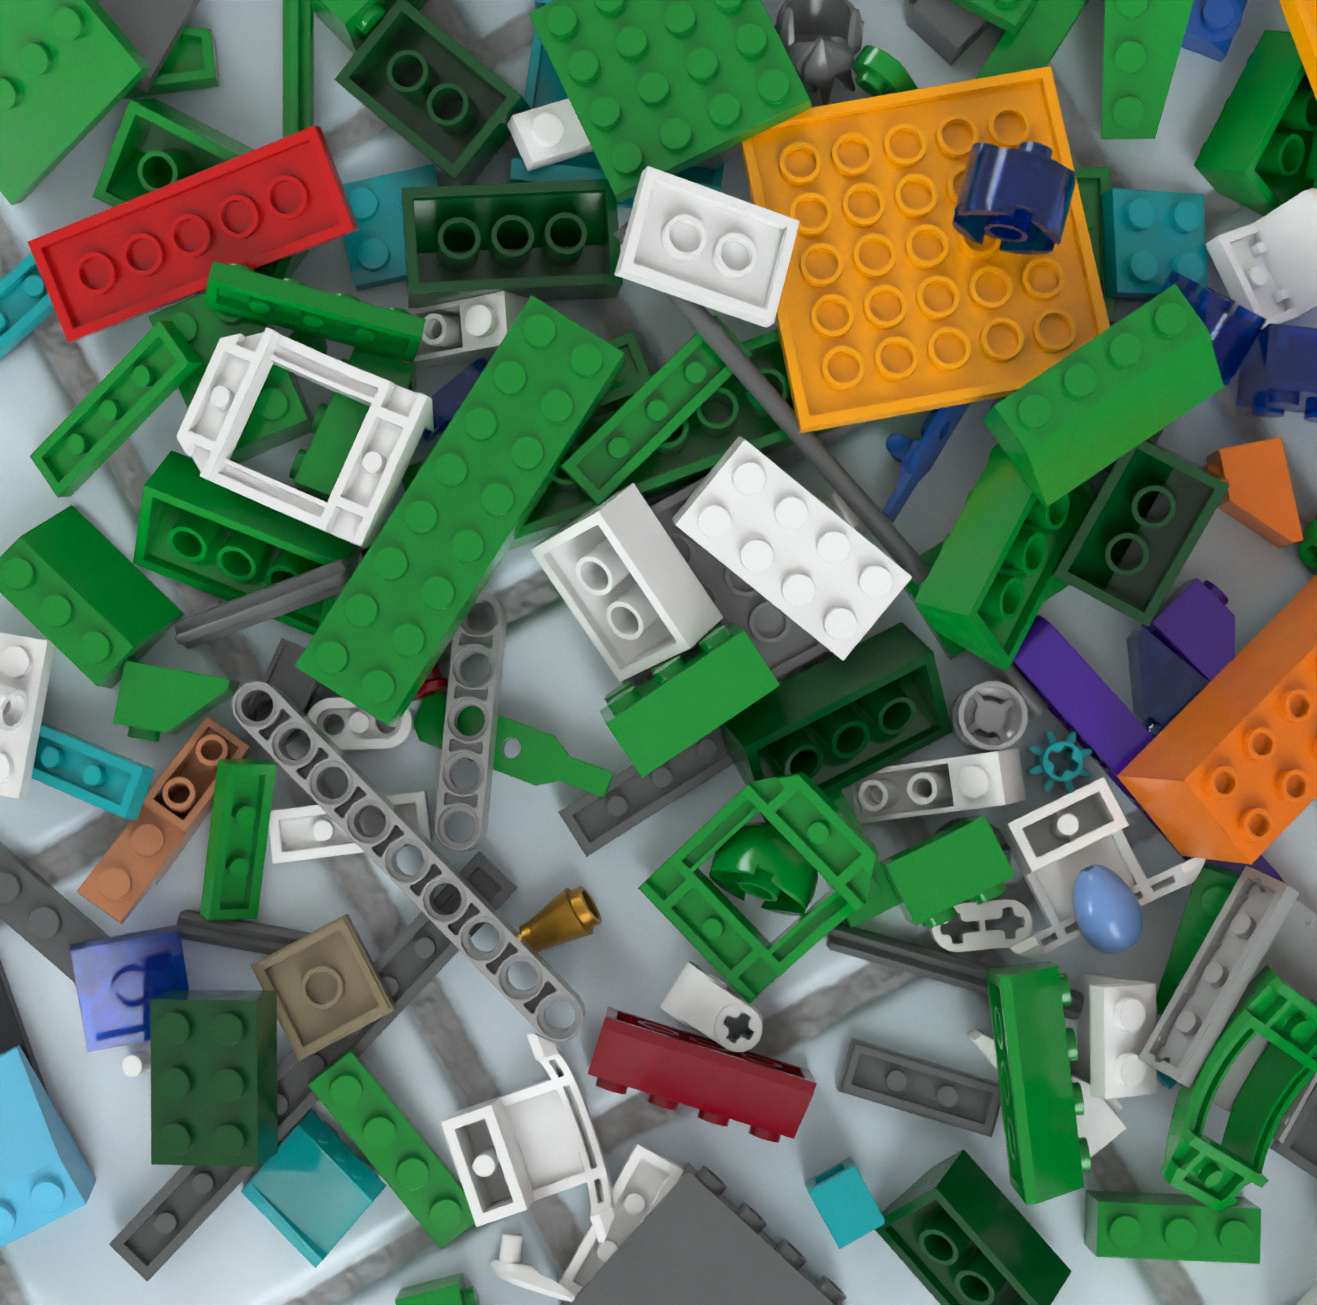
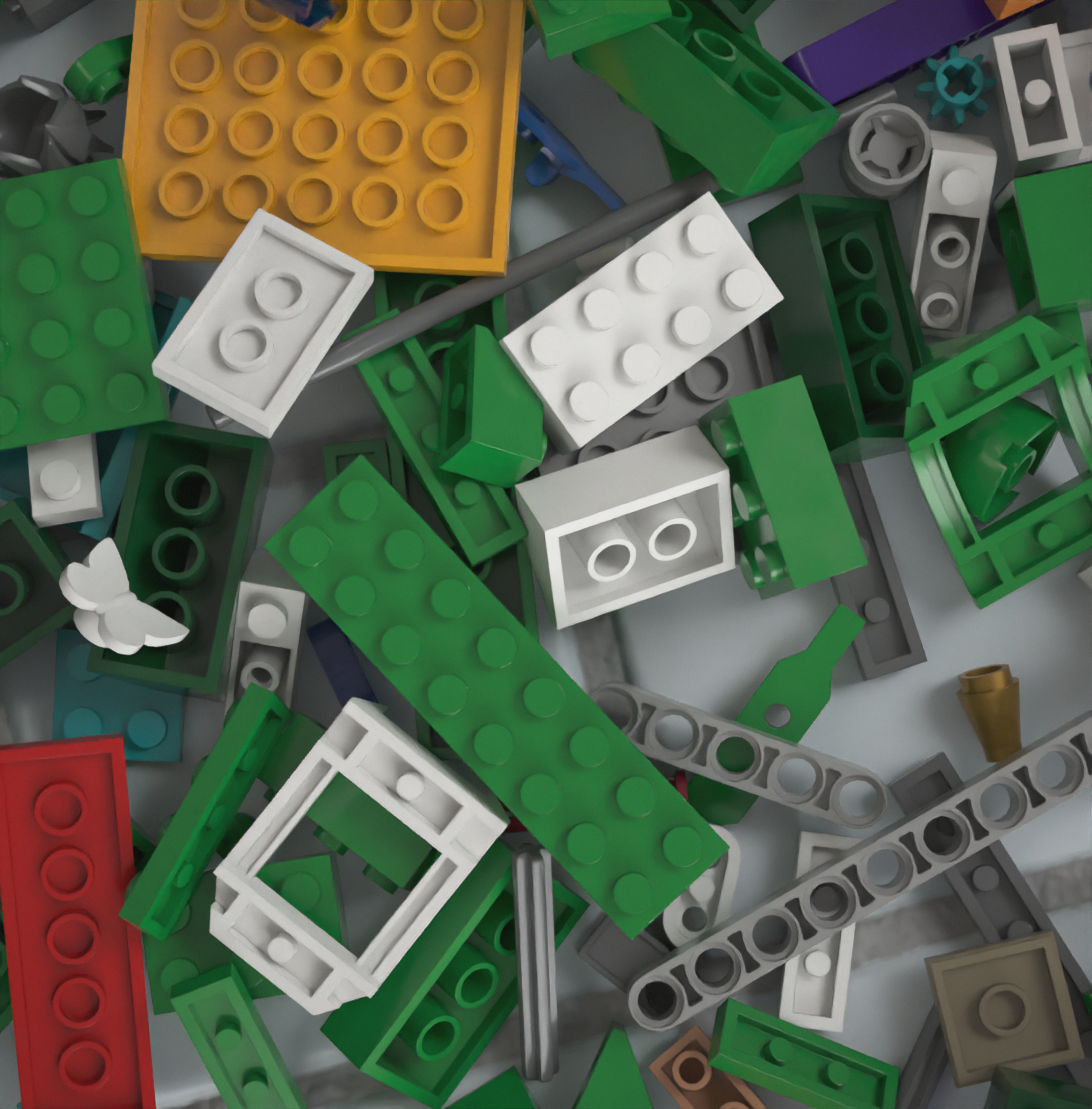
camera: 75 degrees left, 0 degrees up
(451, 190) = (108, 610): none -> white animal
(683, 446) = (488, 413): none -> green slope

